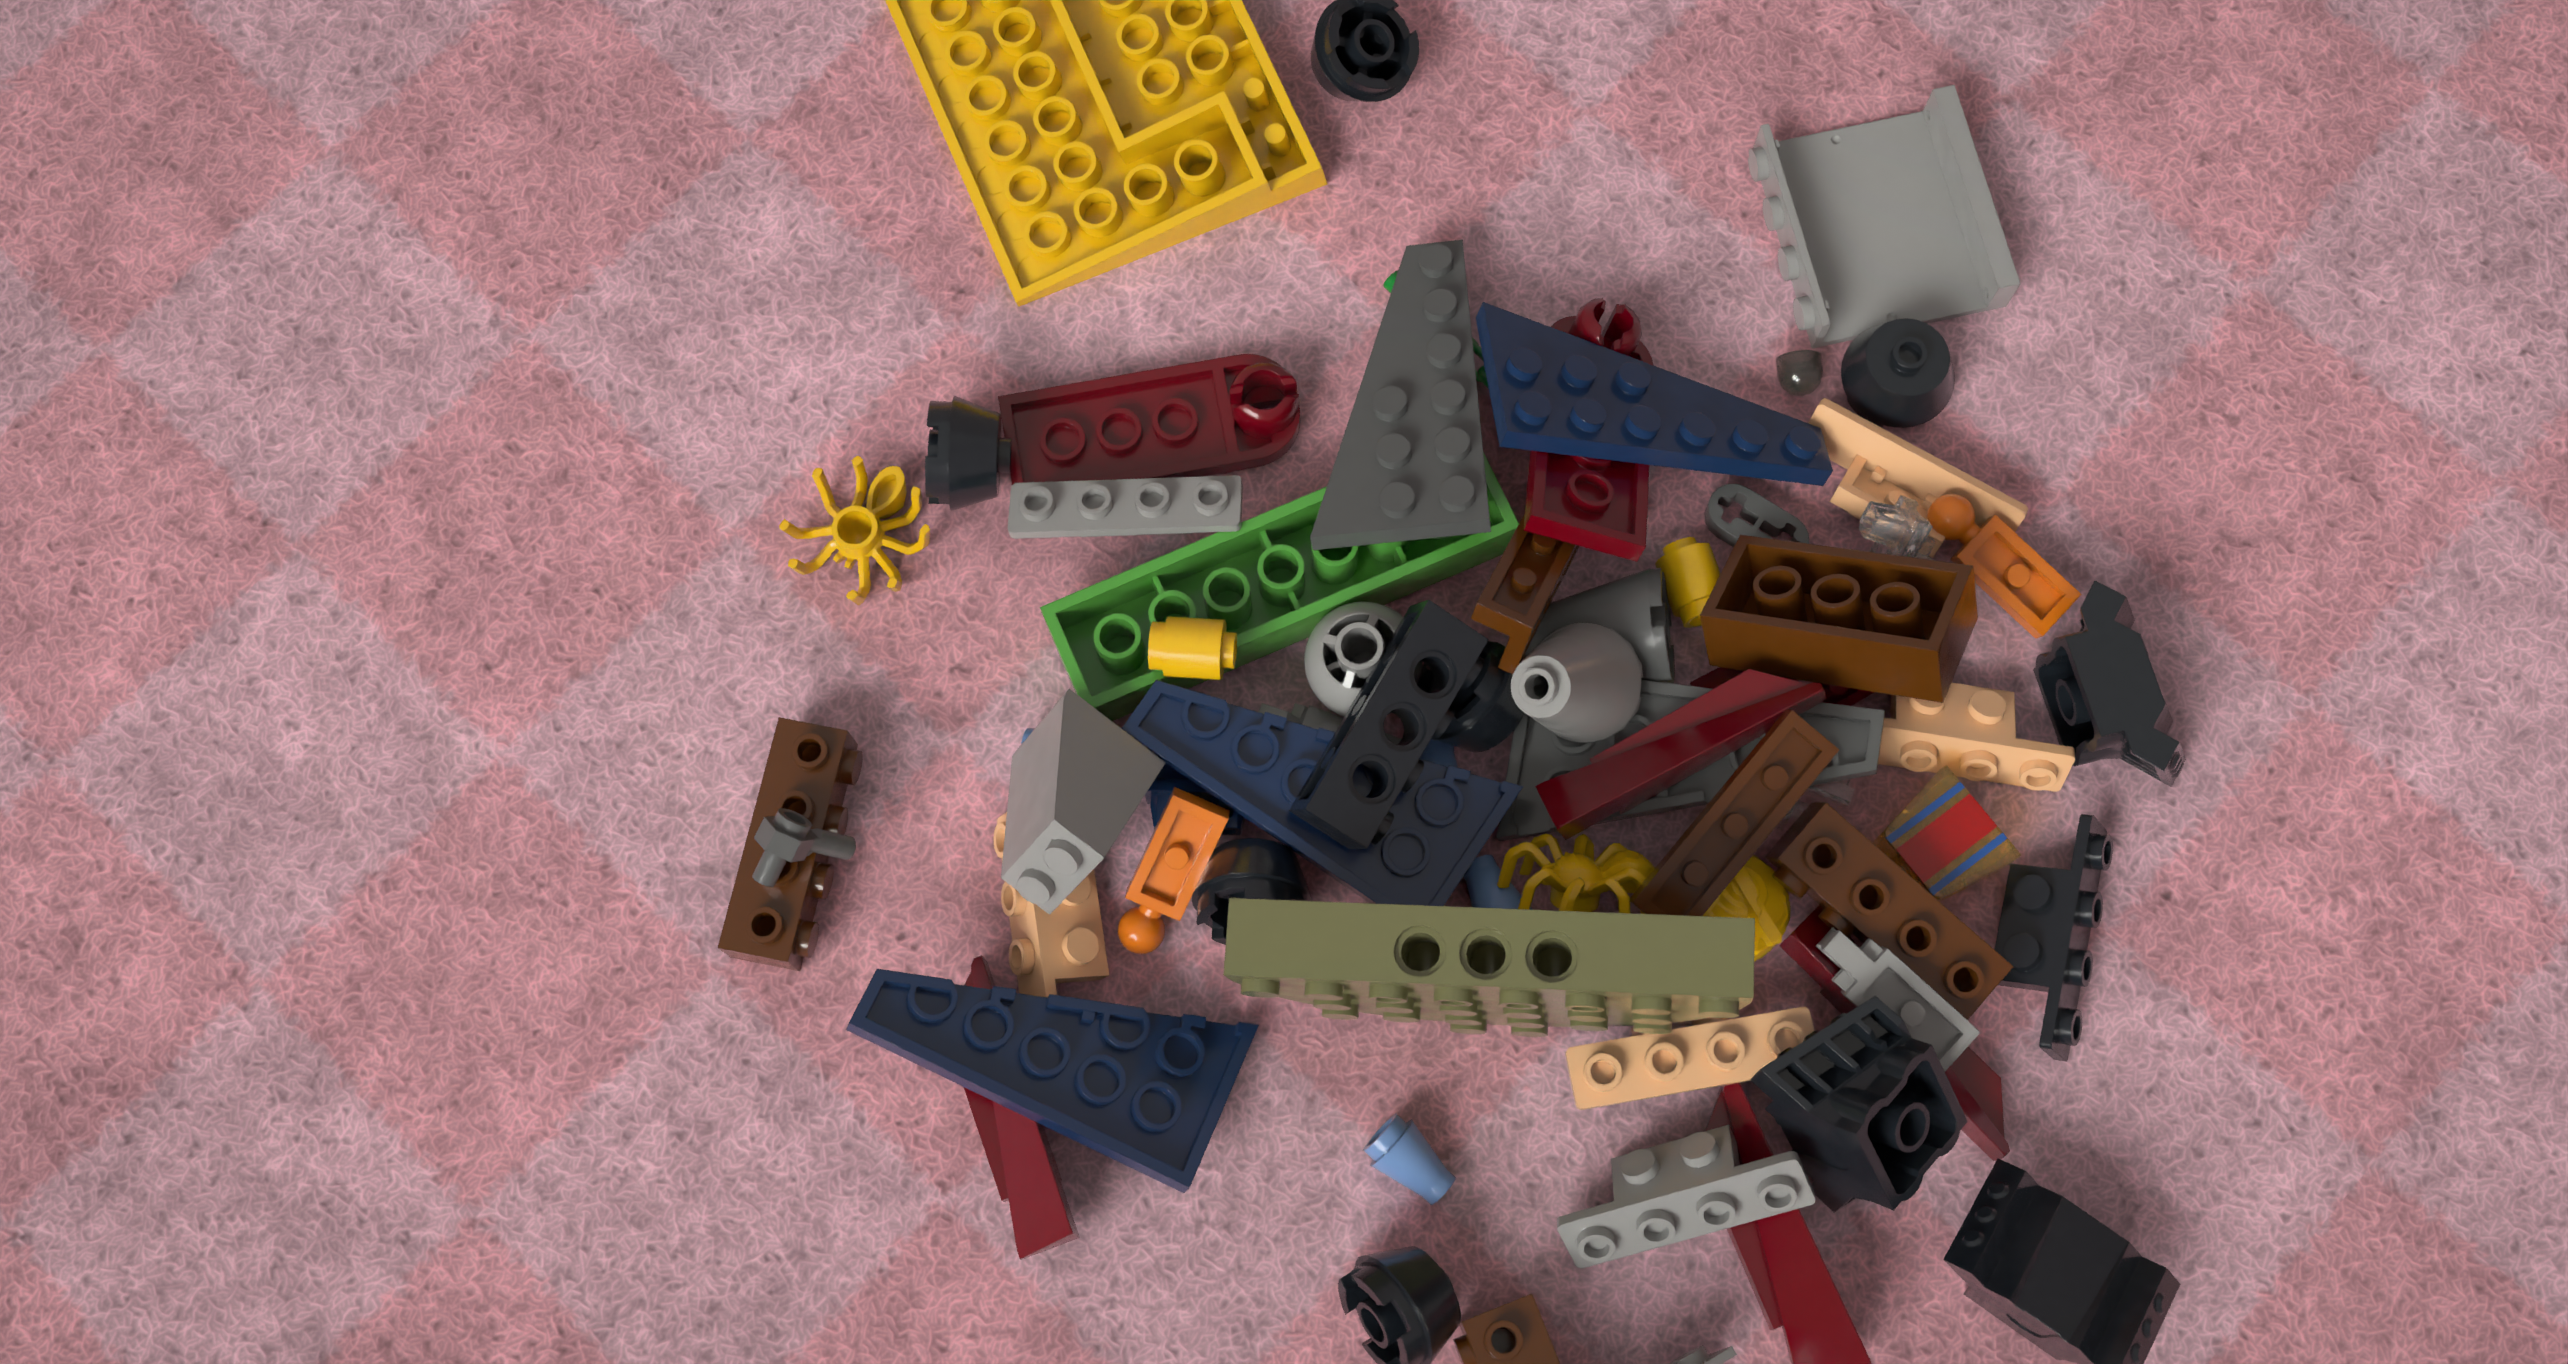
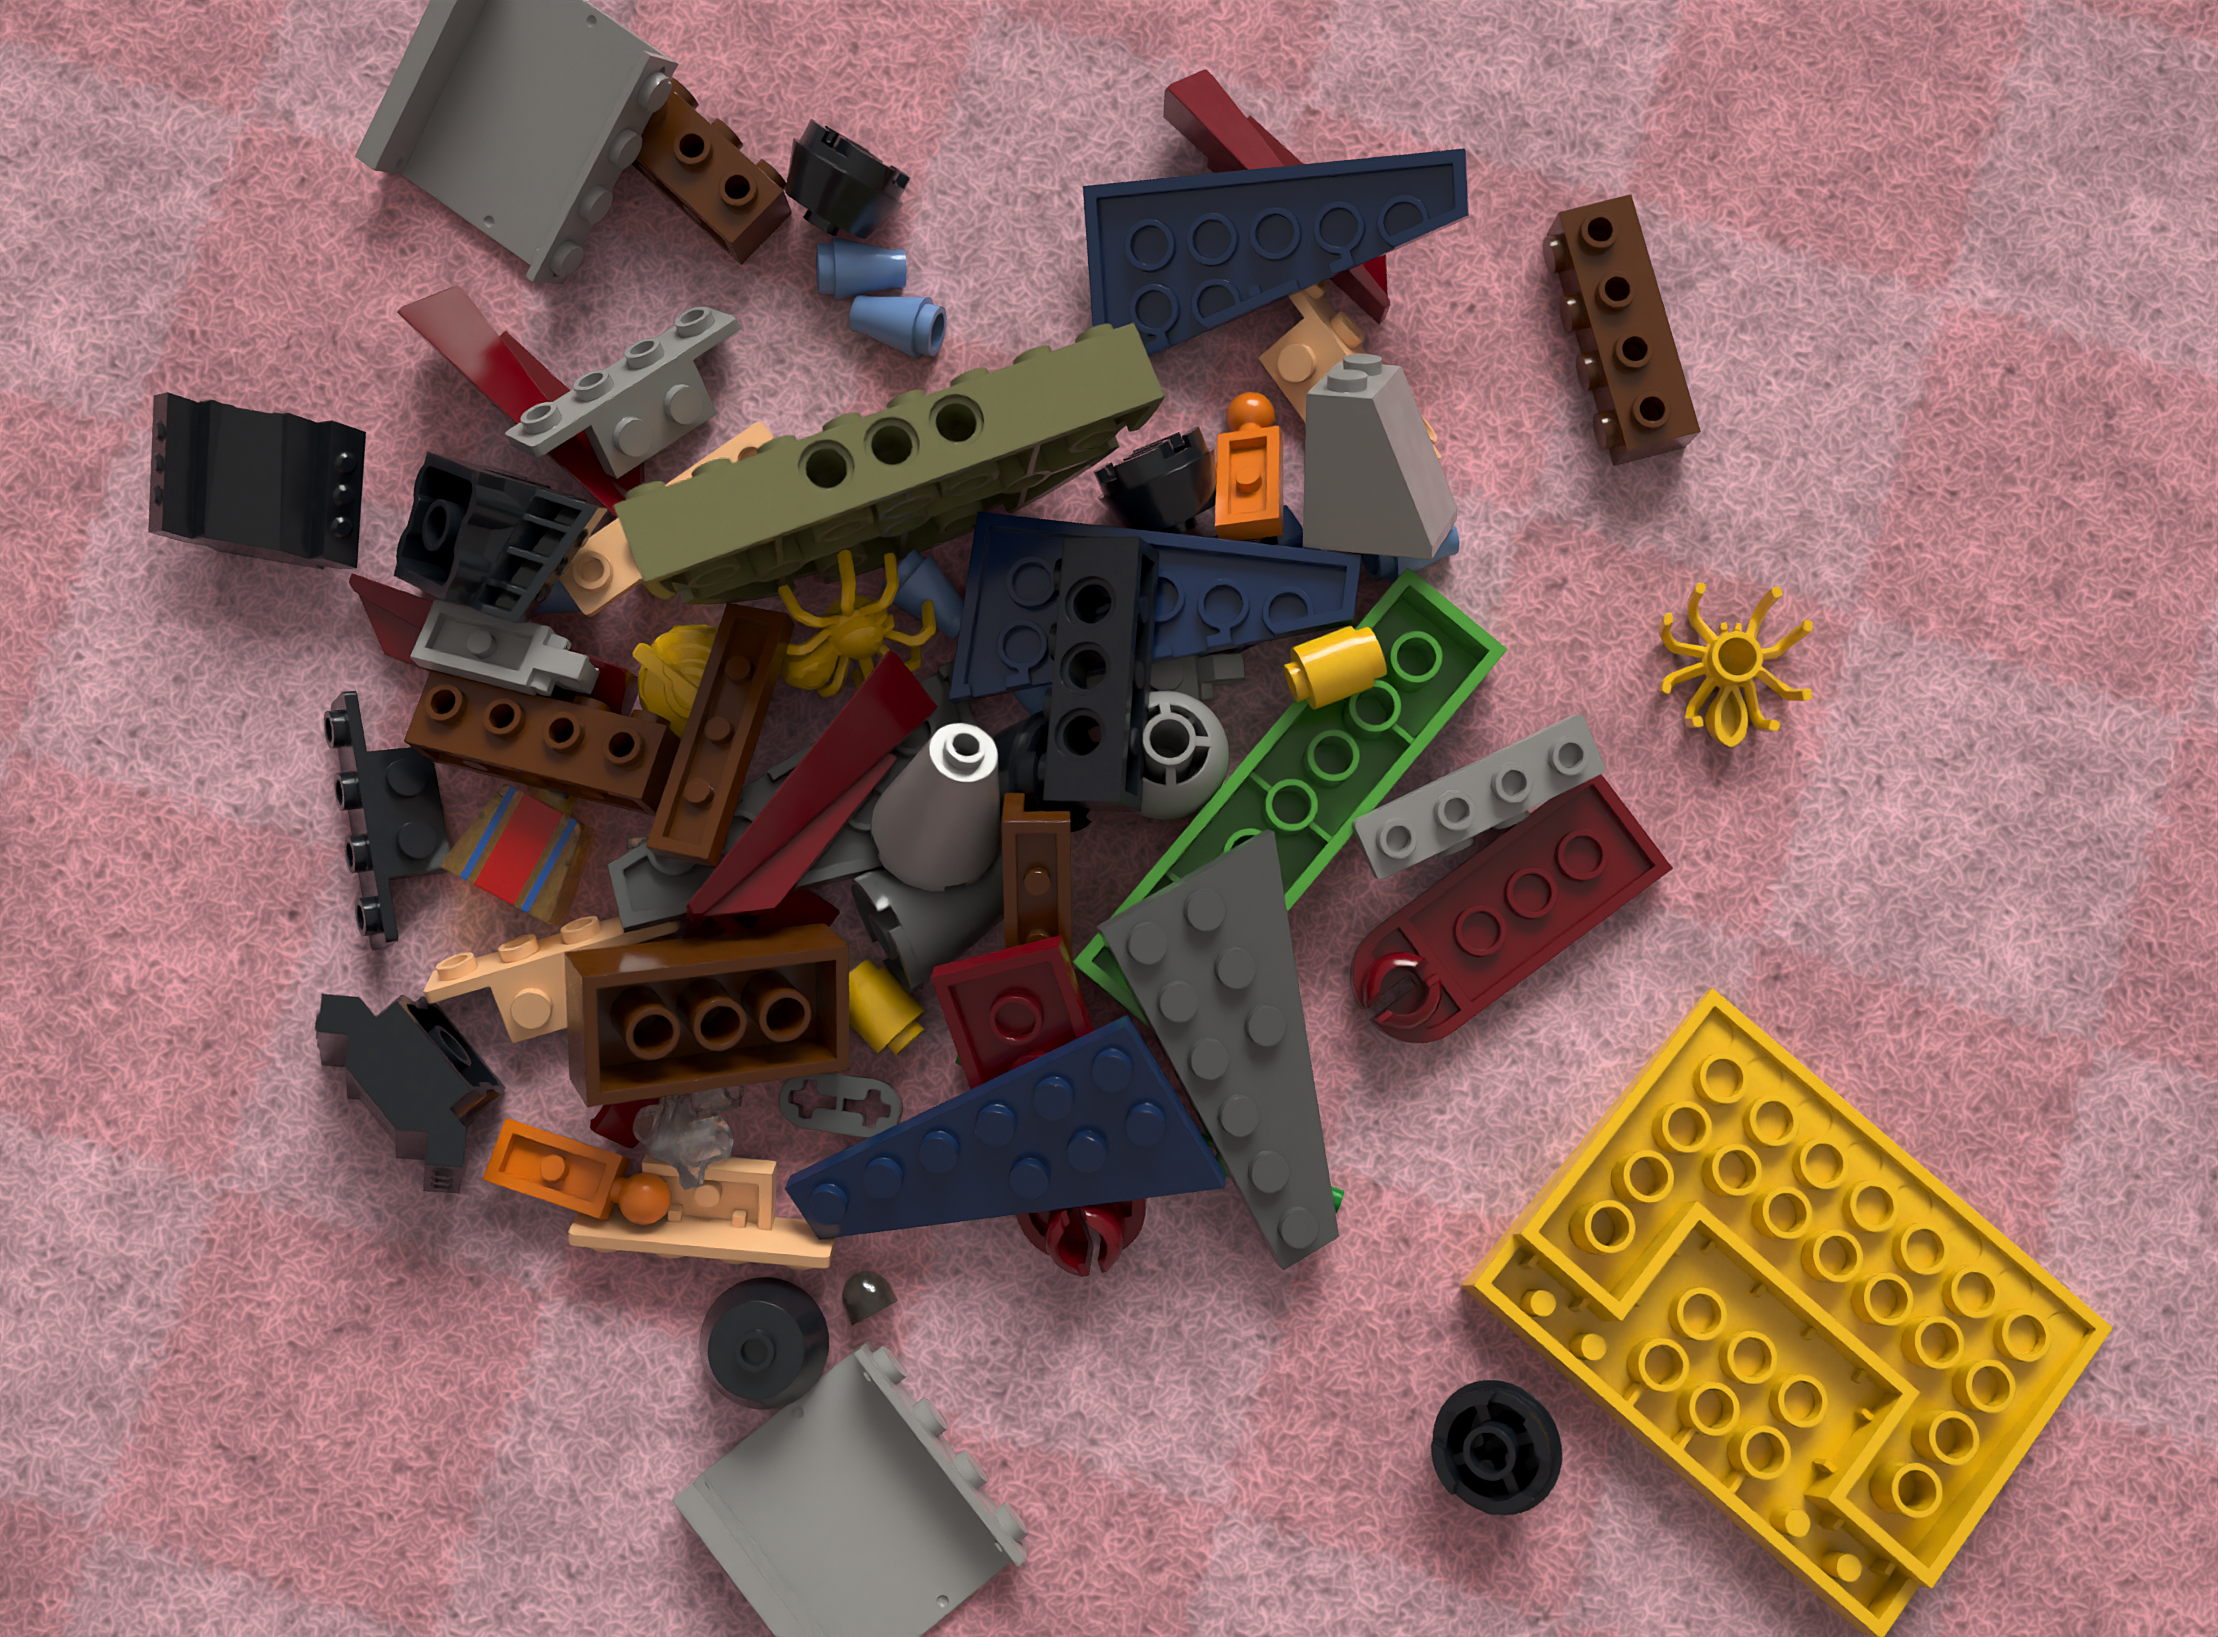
camera: 150 degrees right, 10 degrees up
(790, 839) = (1621, 308): dark grey piece -> none
(964, 453) = (1672, 781): black cone -> none
(1426, 1226) = (857, 268): none -> medium blue cone

